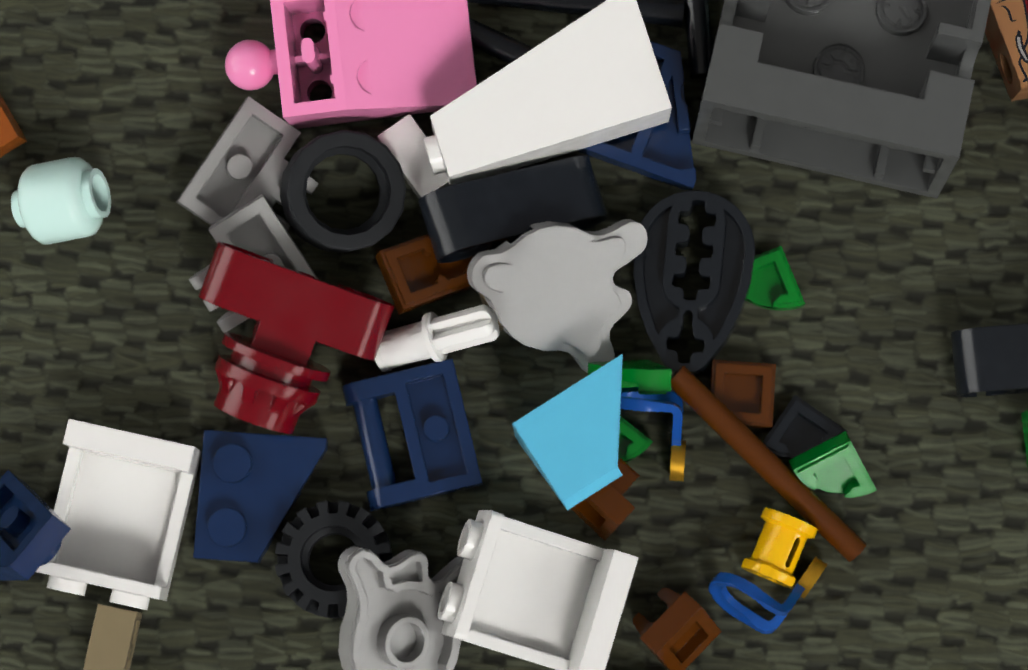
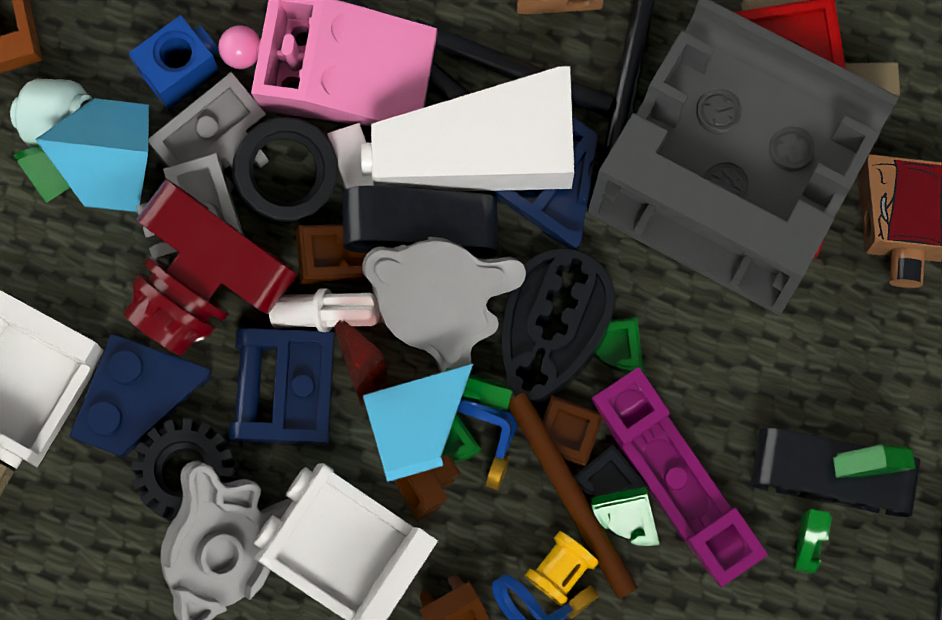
camera: 15 degrees right, 5 degrees down
(78, 264) = (41, 172): none -> green tile
(134, 228) = (102, 152): none -> medium azure slope
(180, 128) = (169, 83): none -> blue brick
(495, 382) = (363, 360): none -> clear red slope
(877, 413) = (677, 478): none -> magenta slope

